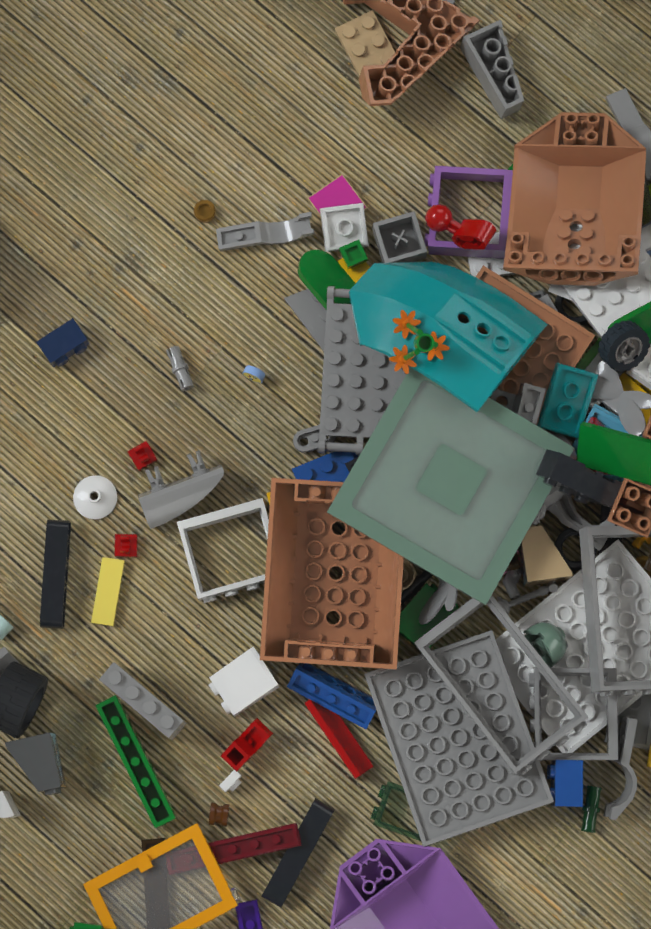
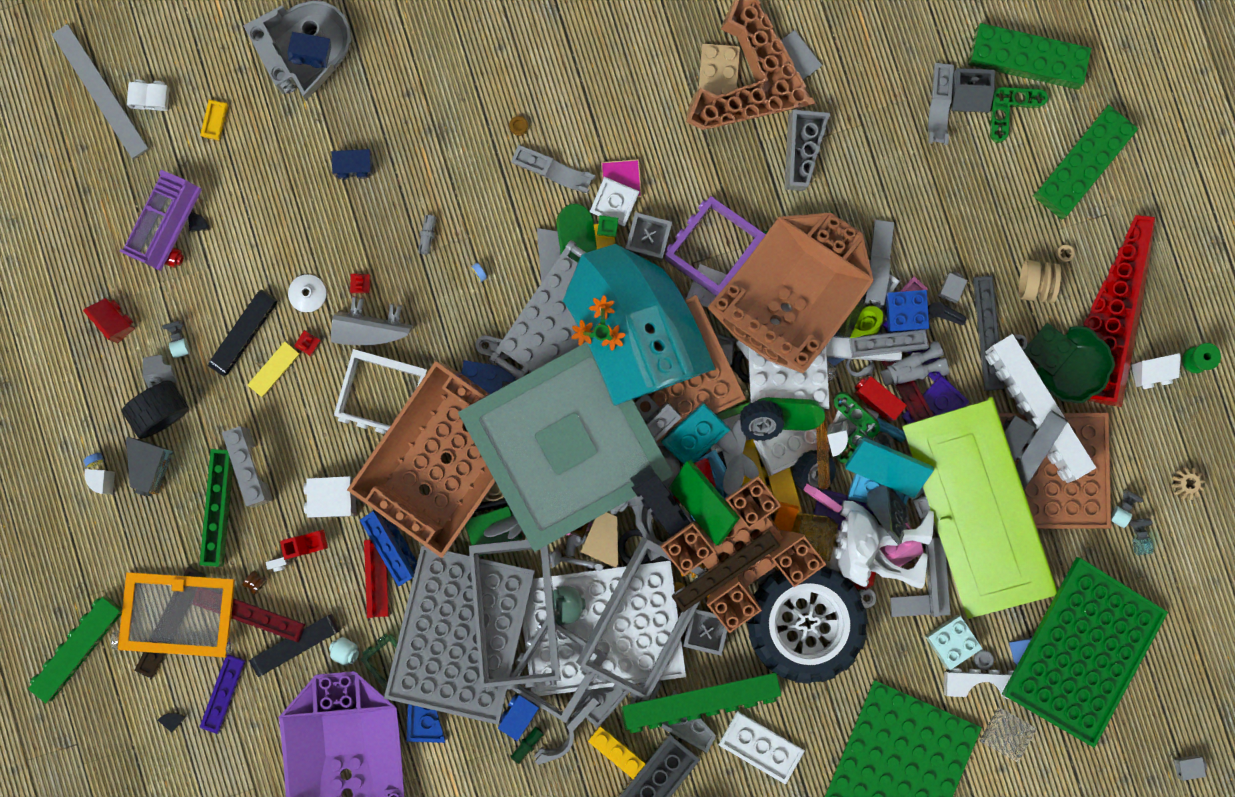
camera: 30 degrees right, 5 degrees up
(351, 828) = (344, 651): none -> light aqua head
(467, 234) = (699, 264): red beam -> none
(476, 852) = (423, 725): none -> blue wing

